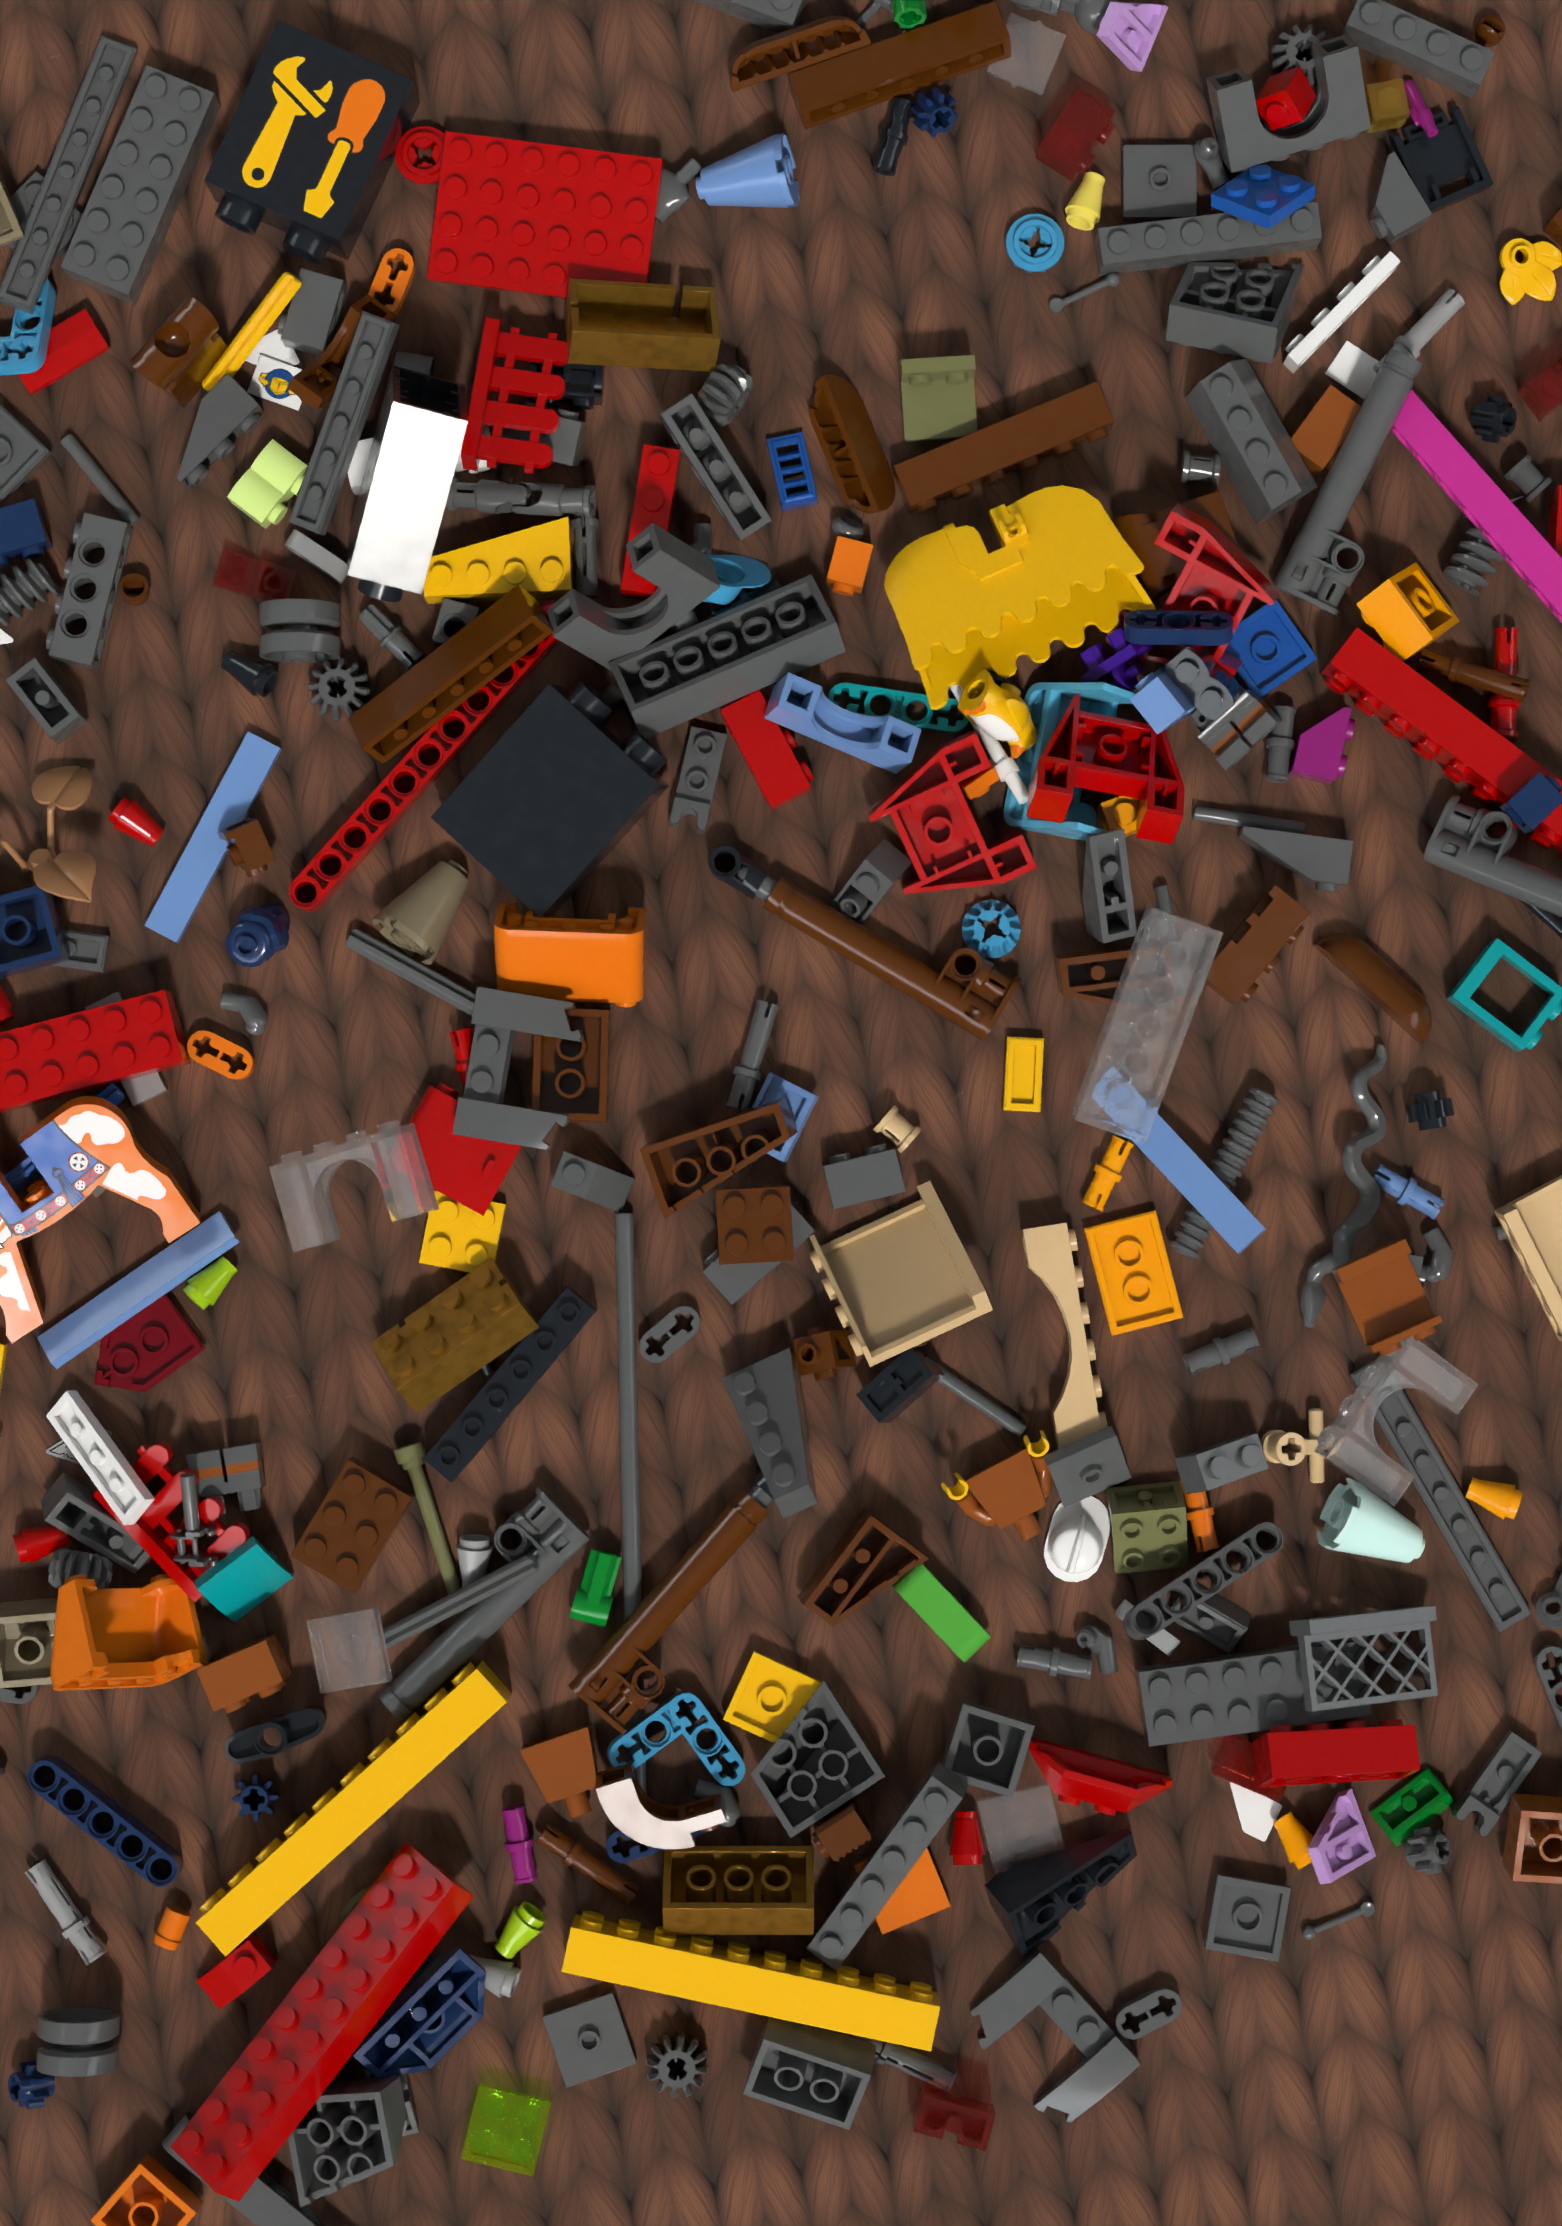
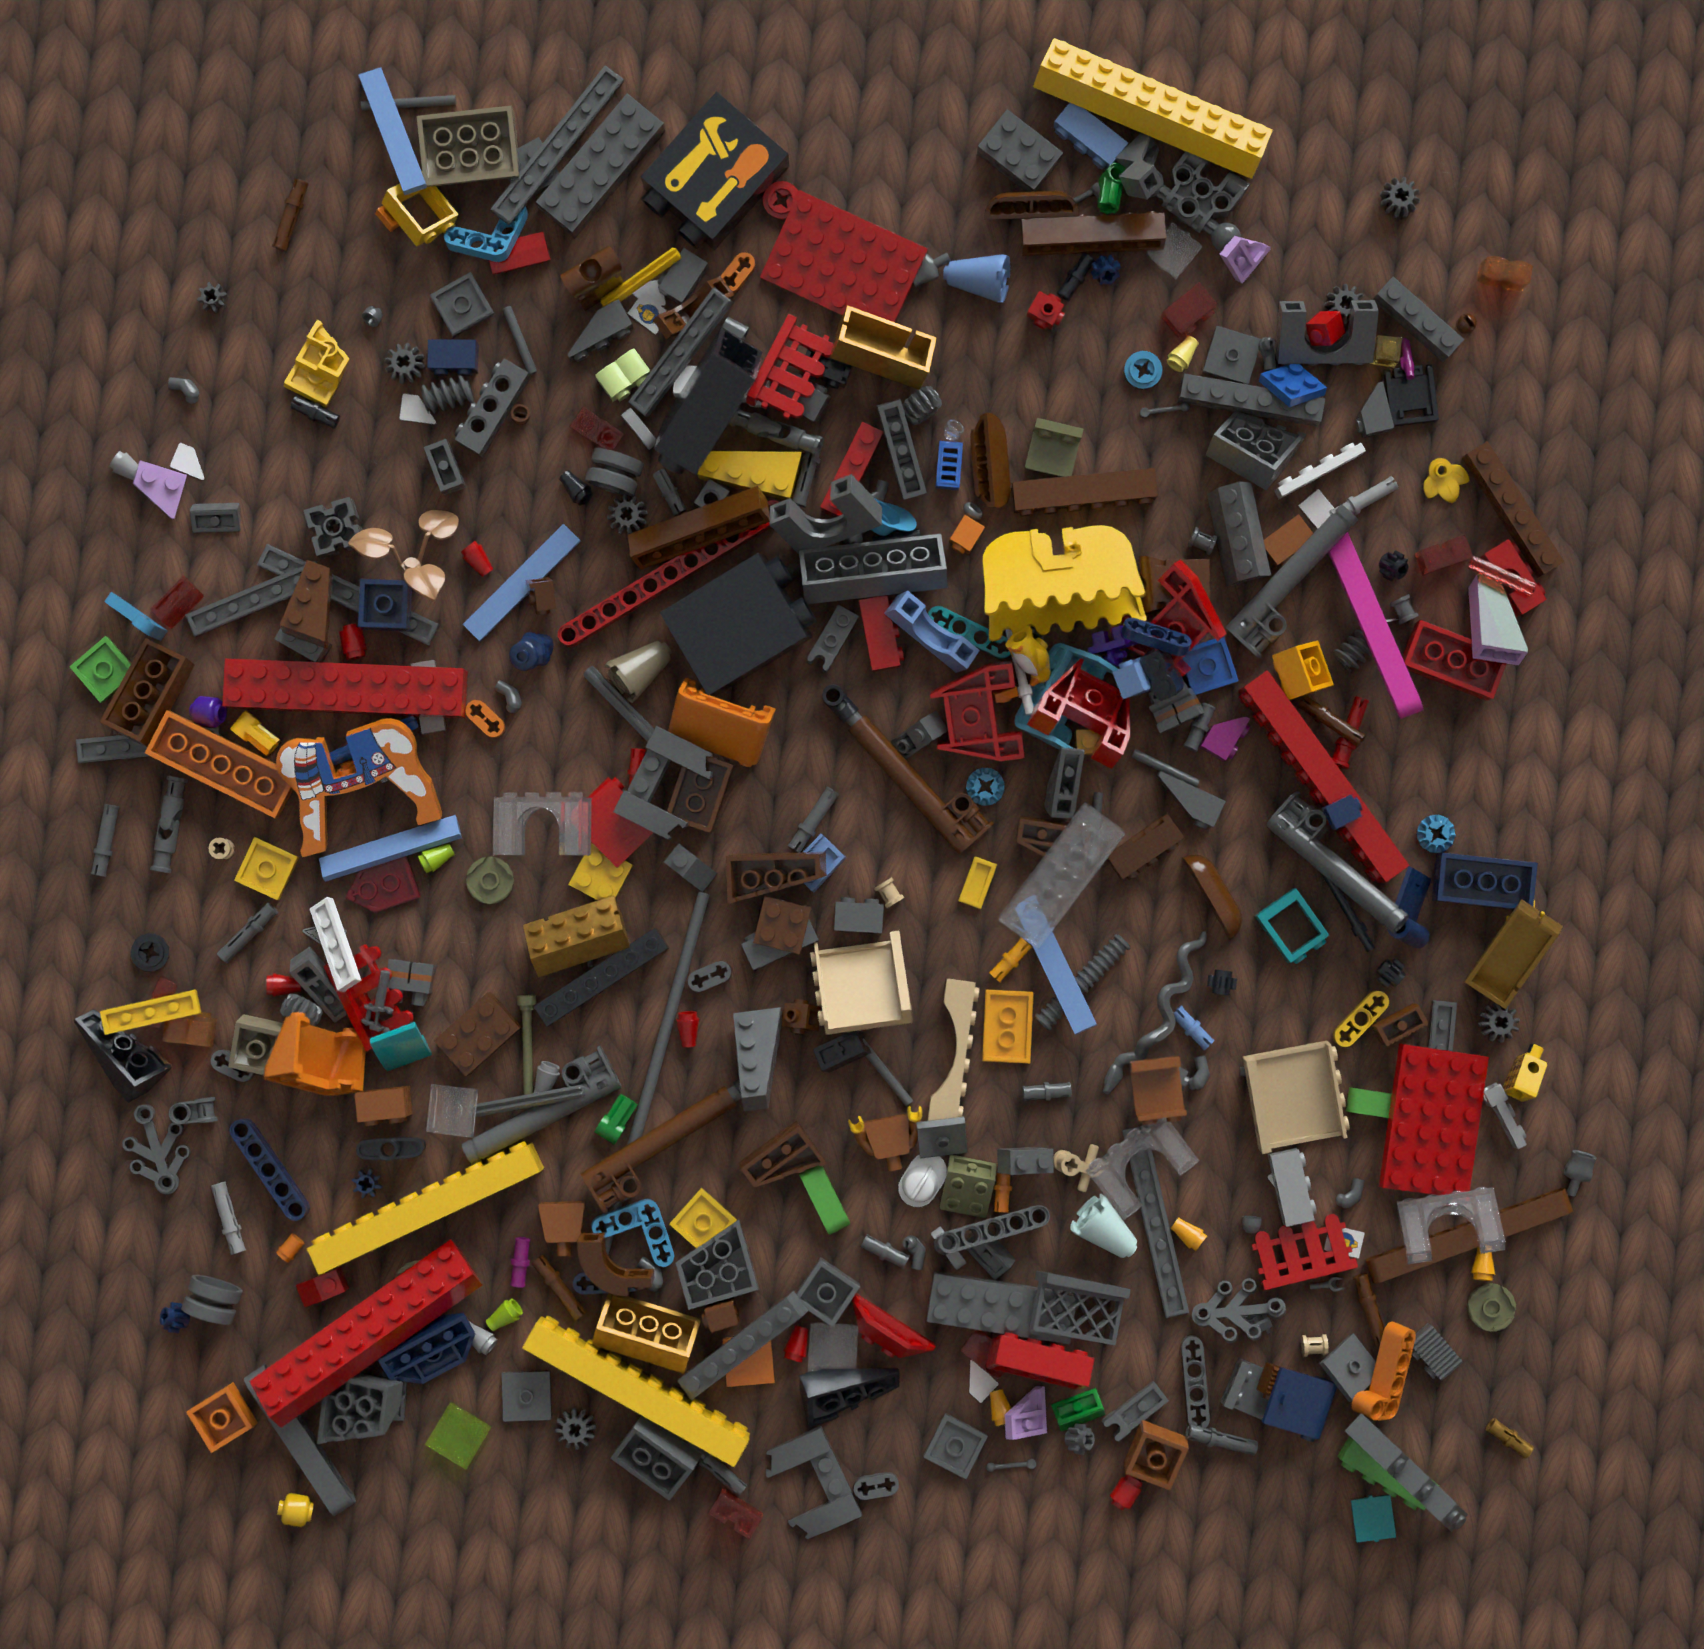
camera: 15 degrees right, 0 degrees up
(301, 1291) = (490, 880): none -> olive tile
(661, 1419) = (688, 1027): none -> red cone
(782, 417) = (953, 430): none -> clear hinge
(865, 199) = (1046, 302): none -> red brick
(1520, 1907) = (1126, 1492): none -> red brick

